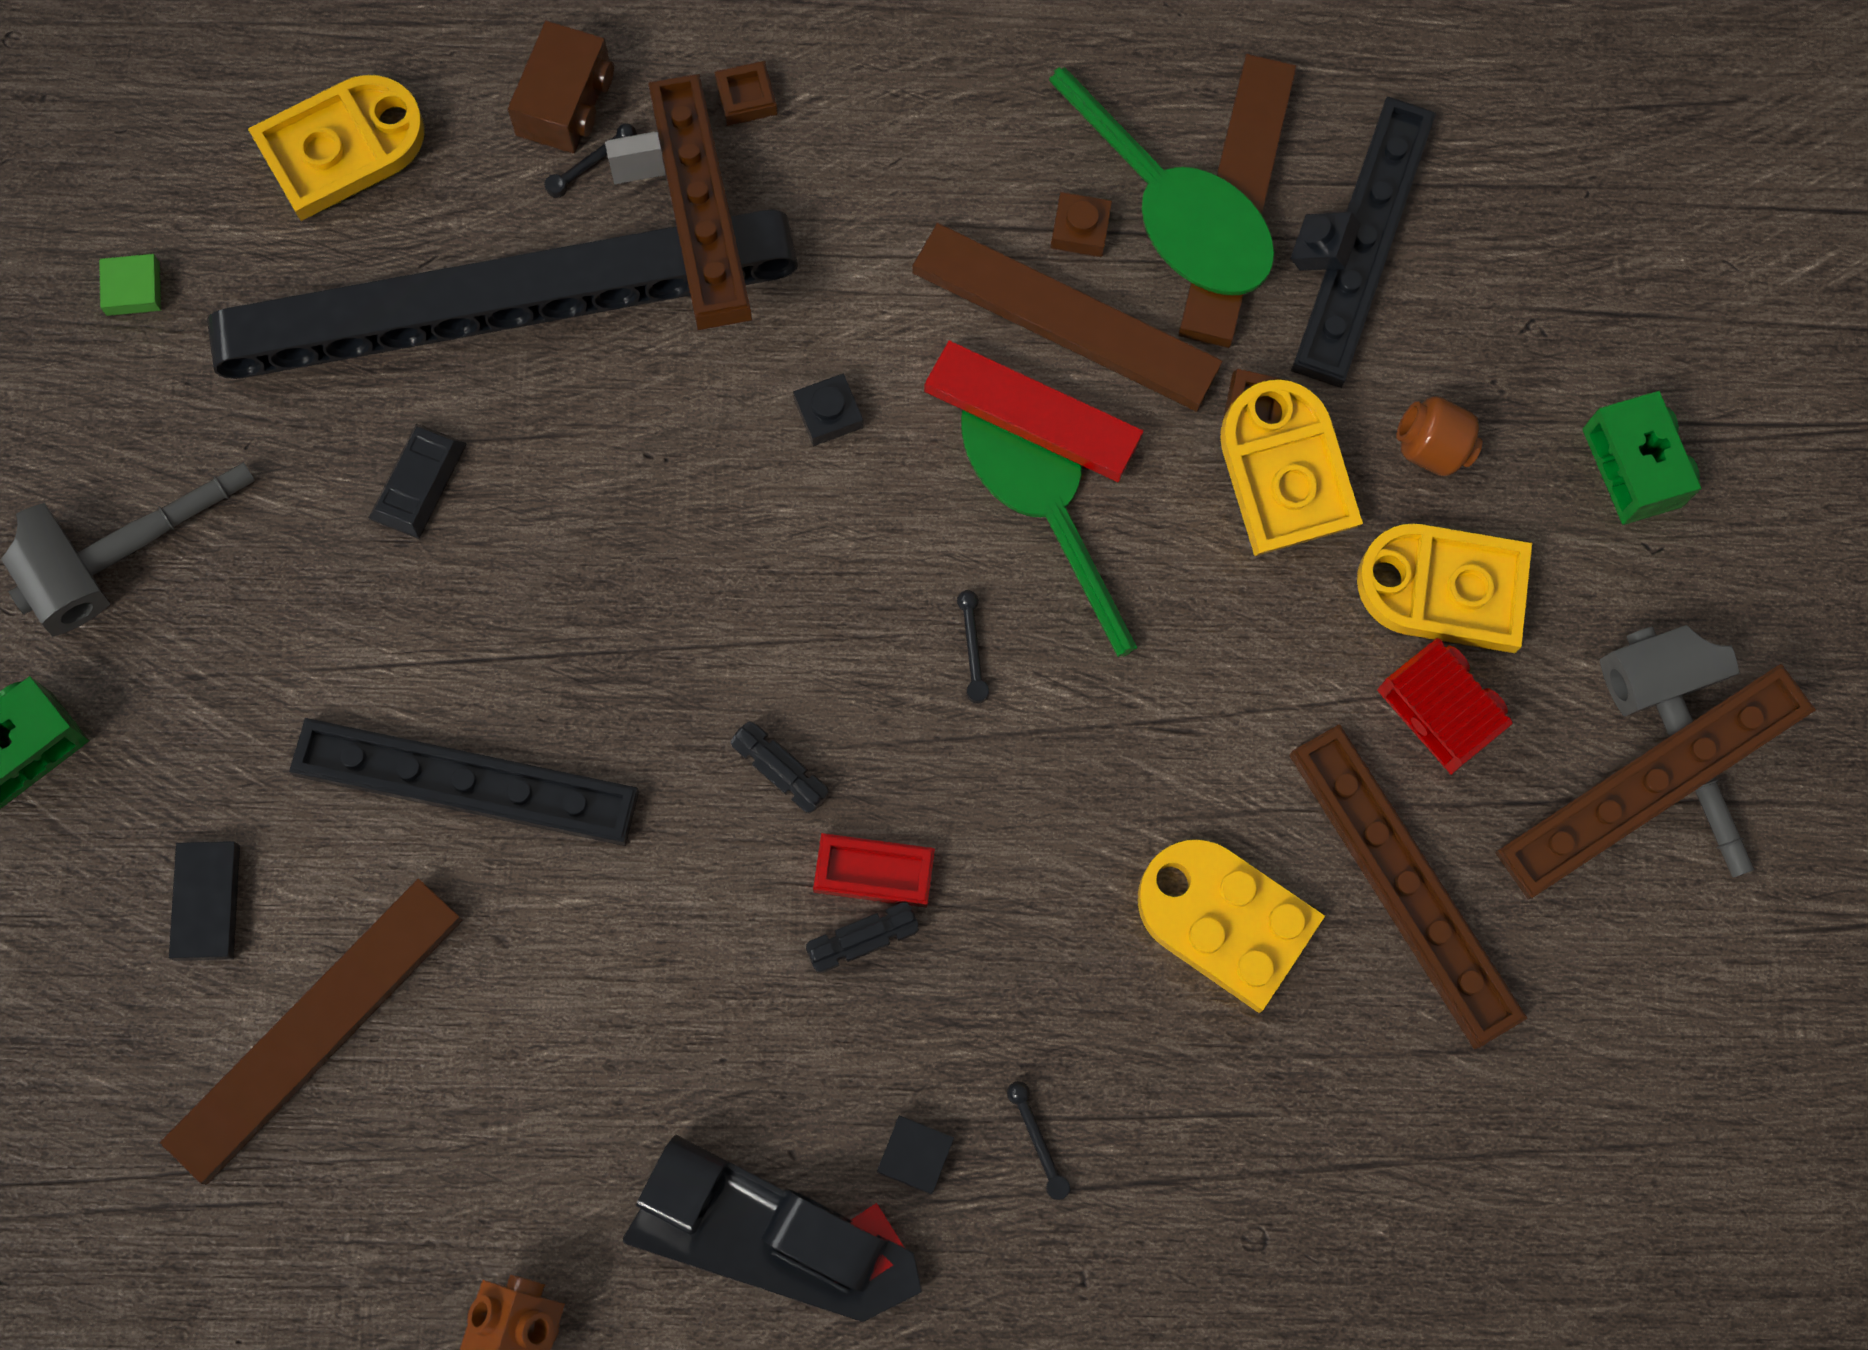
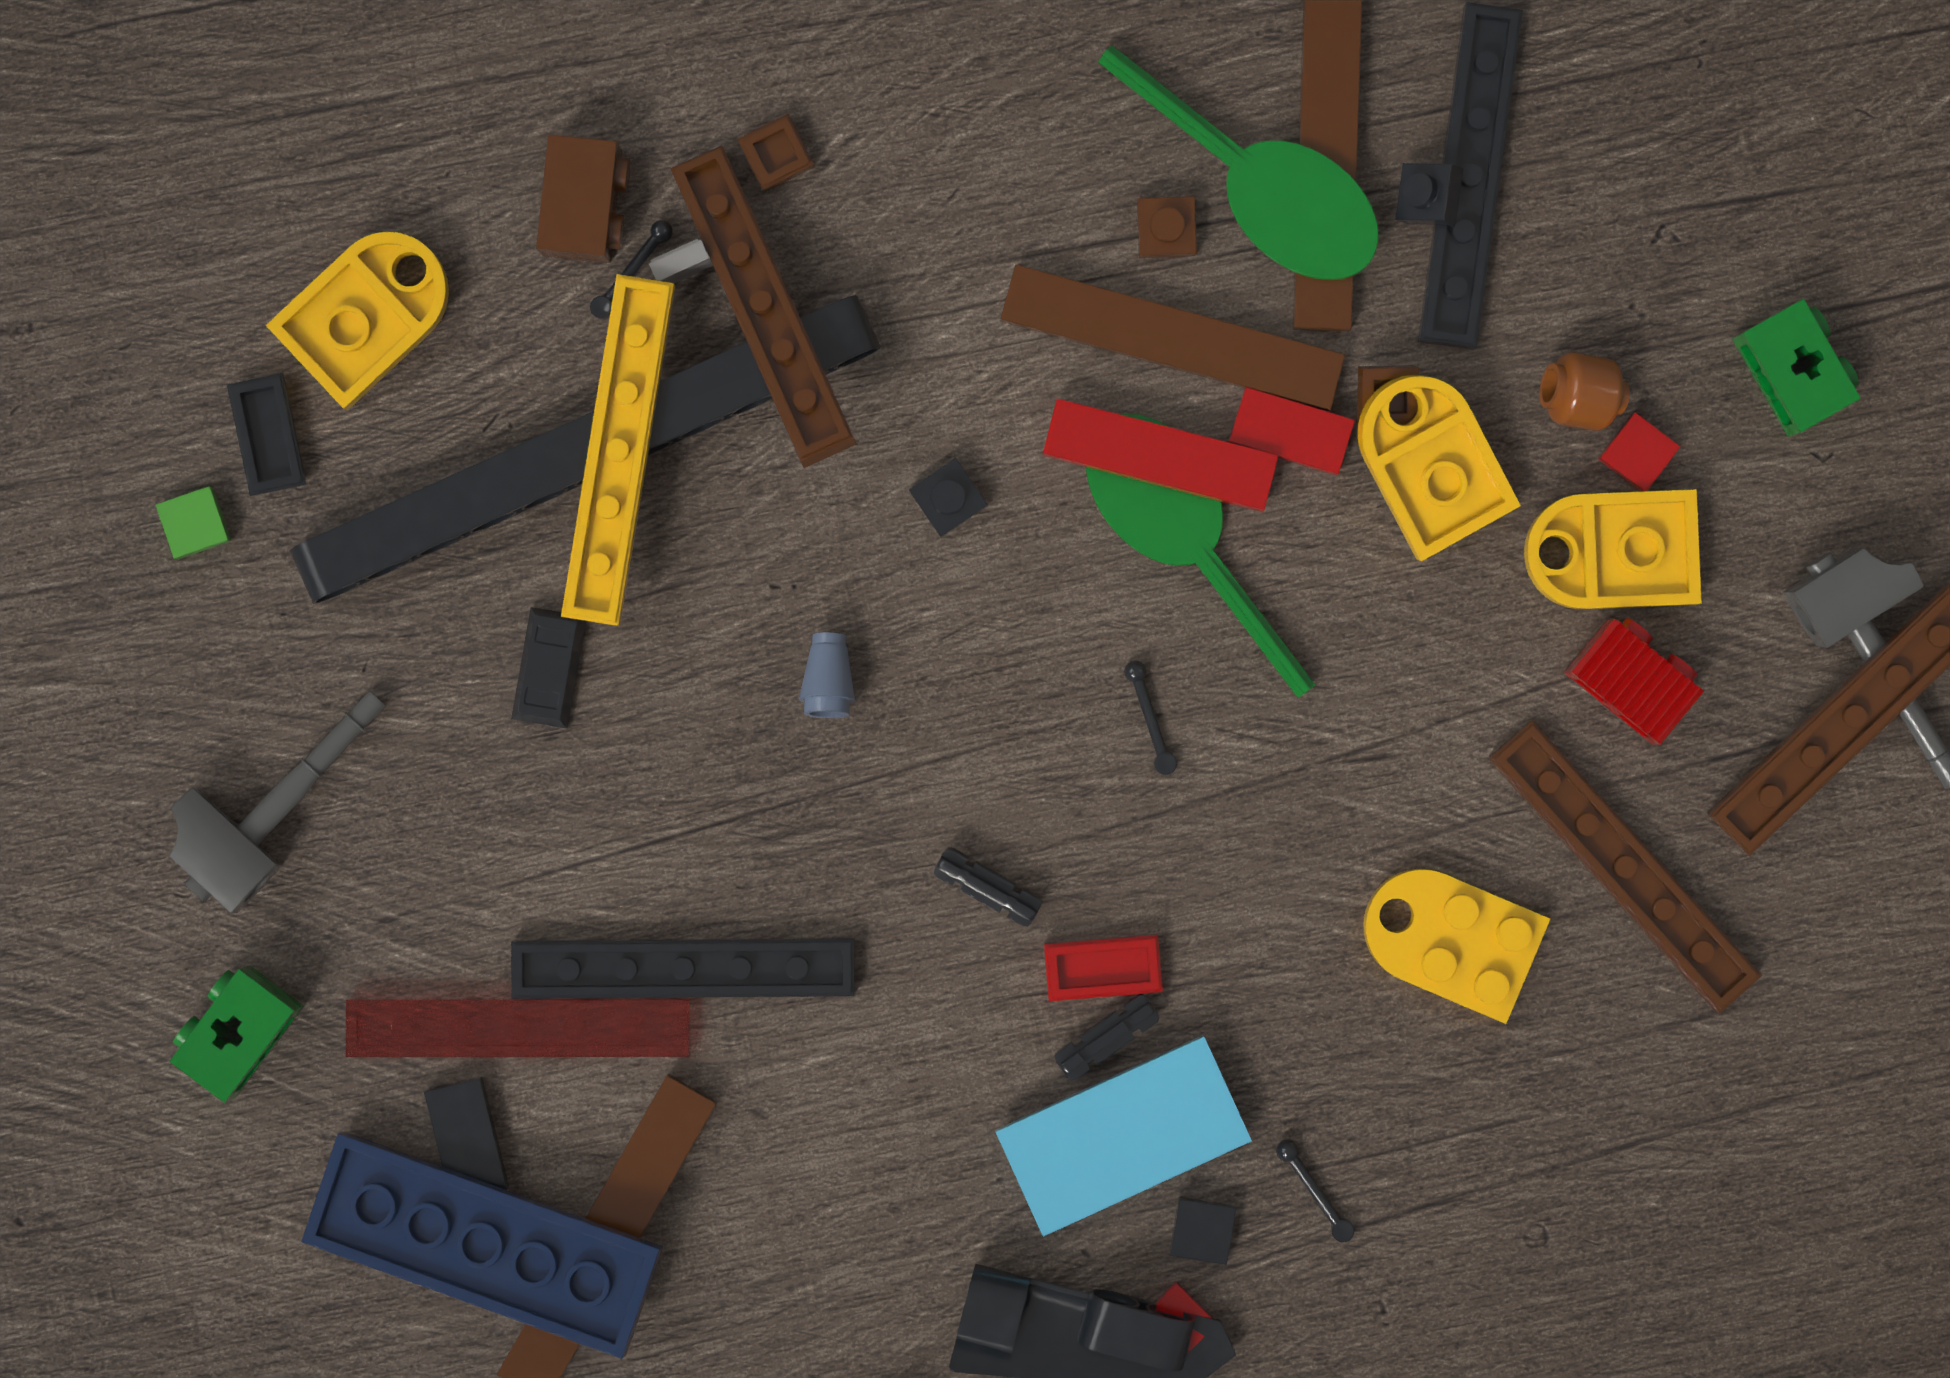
camera: 10 degrees left, 15 degrees up
(185, 1003) = (482, 1244): none -> dark blue plate
(220, 224) = (266, 434): none -> black tile
(288, 803) = (517, 1027): none -> clear red tile
(530, 292) = (618, 450): none -> yellow tile
(674, 542) = (827, 678): none -> sand blue cone
(855, 1037) = (1123, 1135): none -> medium azure tile
(1167, 420) = (1291, 431): none -> red tile
(1481, 504) = (1638, 452): none -> red tile

